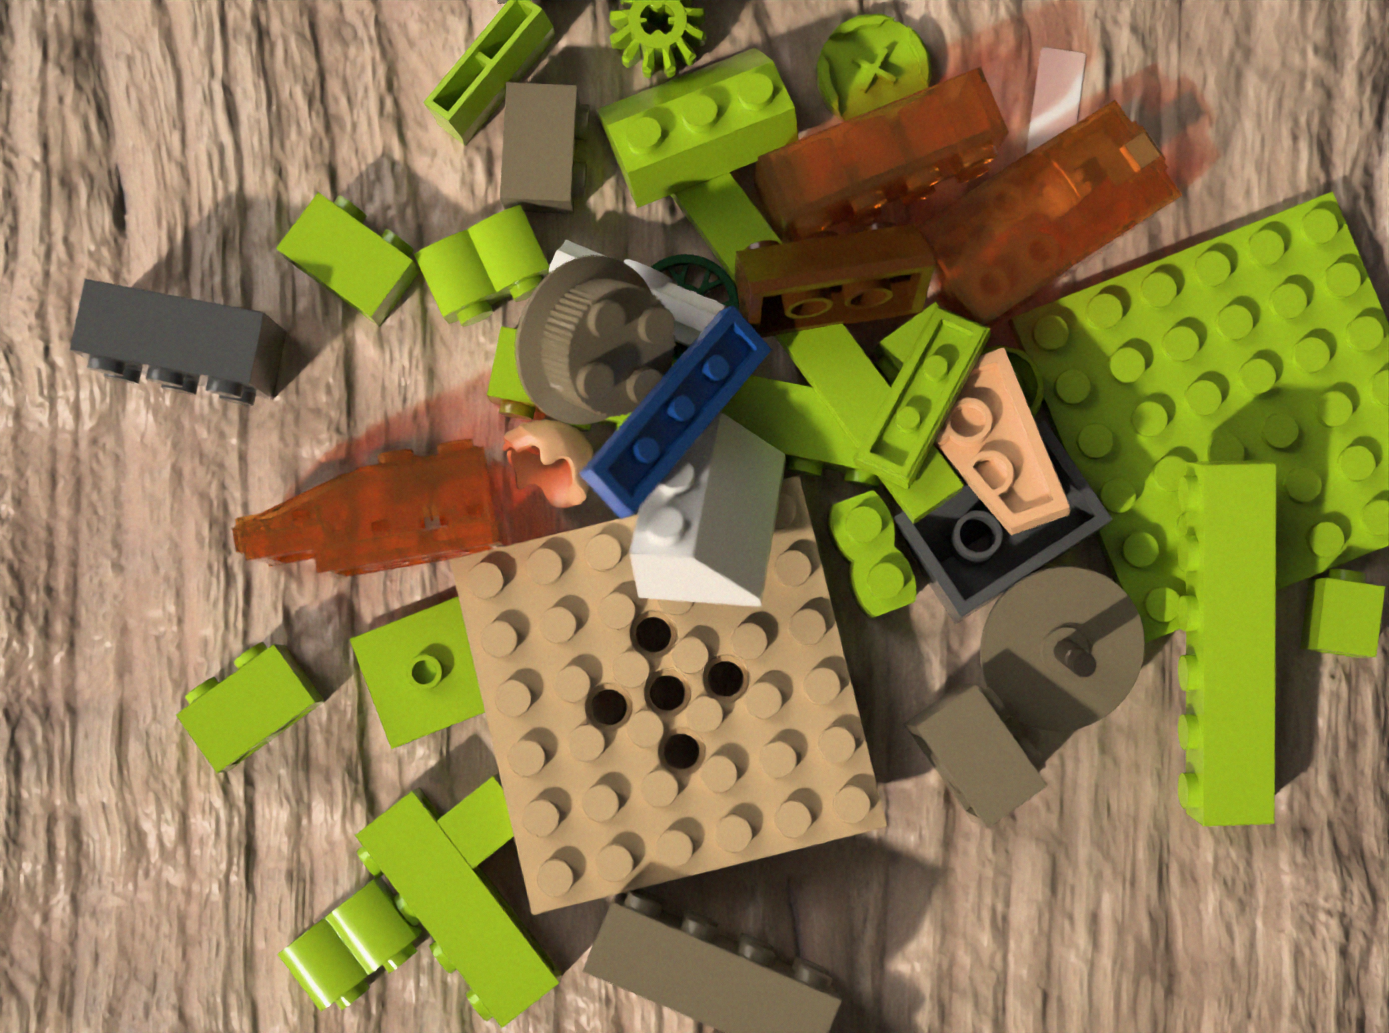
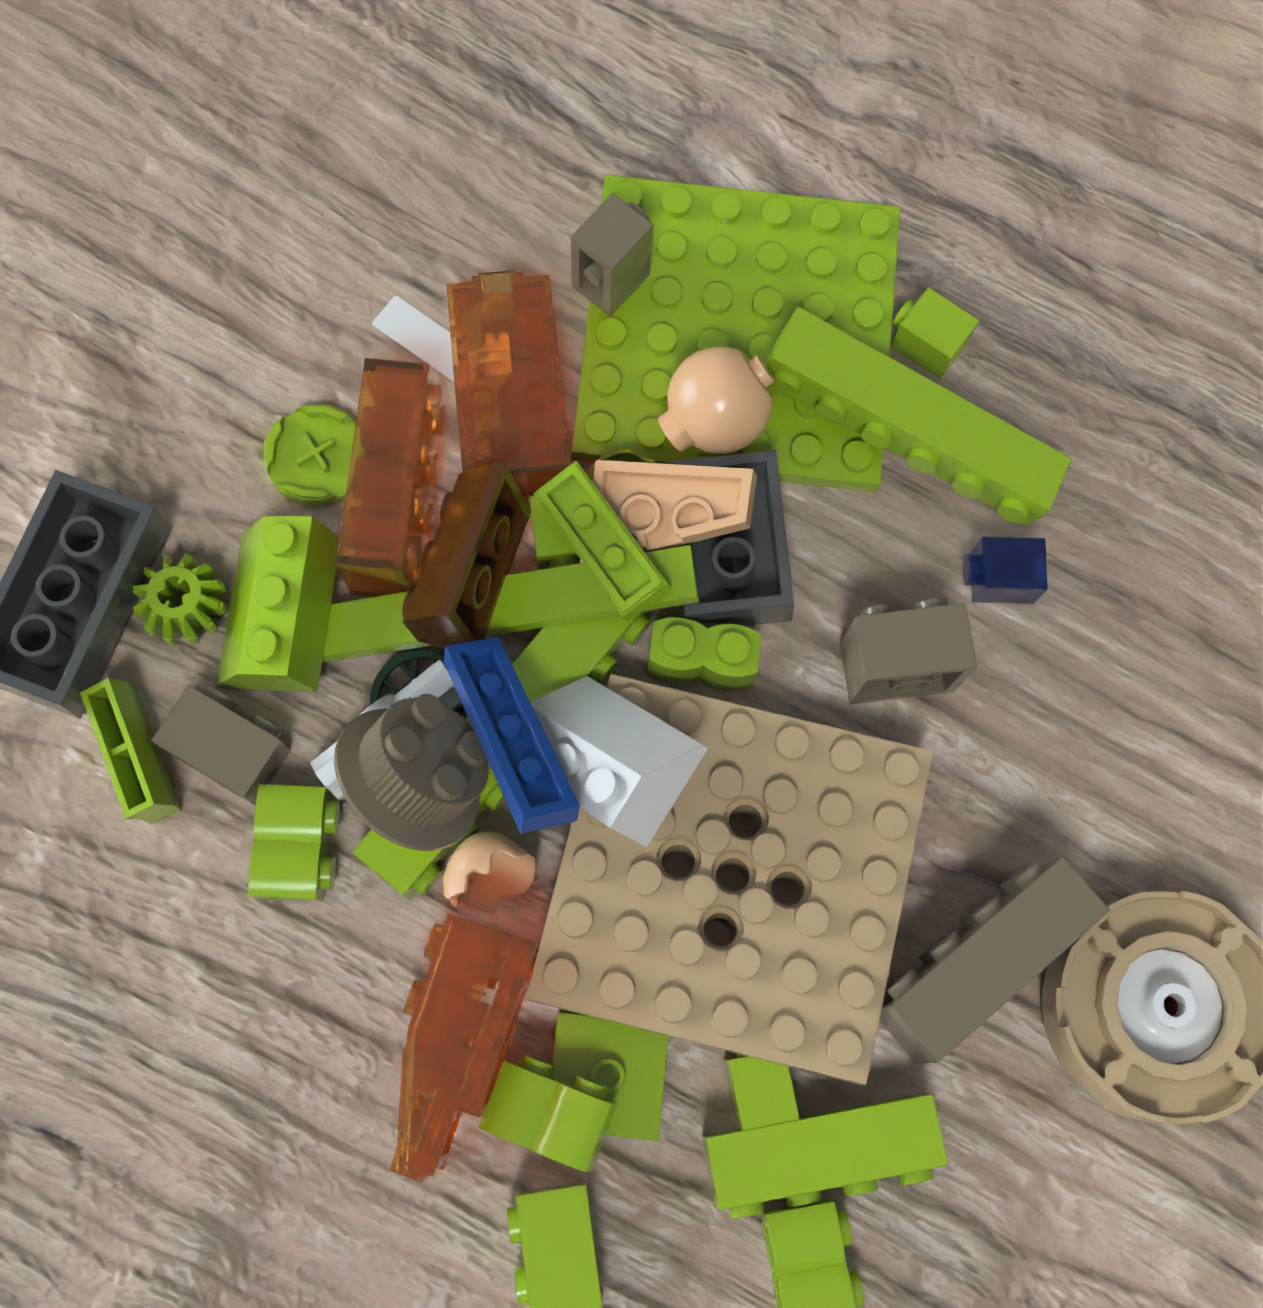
camera: 65 degrees left, 10 degrees down
(178, 342) = (203, 1144): dark grey brick -> none
(349, 257) = (218, 954): lime brick -> none
(360, 635) = (548, 1113): none -> lime brick
(1062, 648) = (854, 543): dark tan piece -> none
(1122, 812) = (1006, 570): none -> clear blue brick
(1132, 435) = (718, 401): none -> light nougat brick
(1233, 247) = (612, 253): none -> dark tan brick

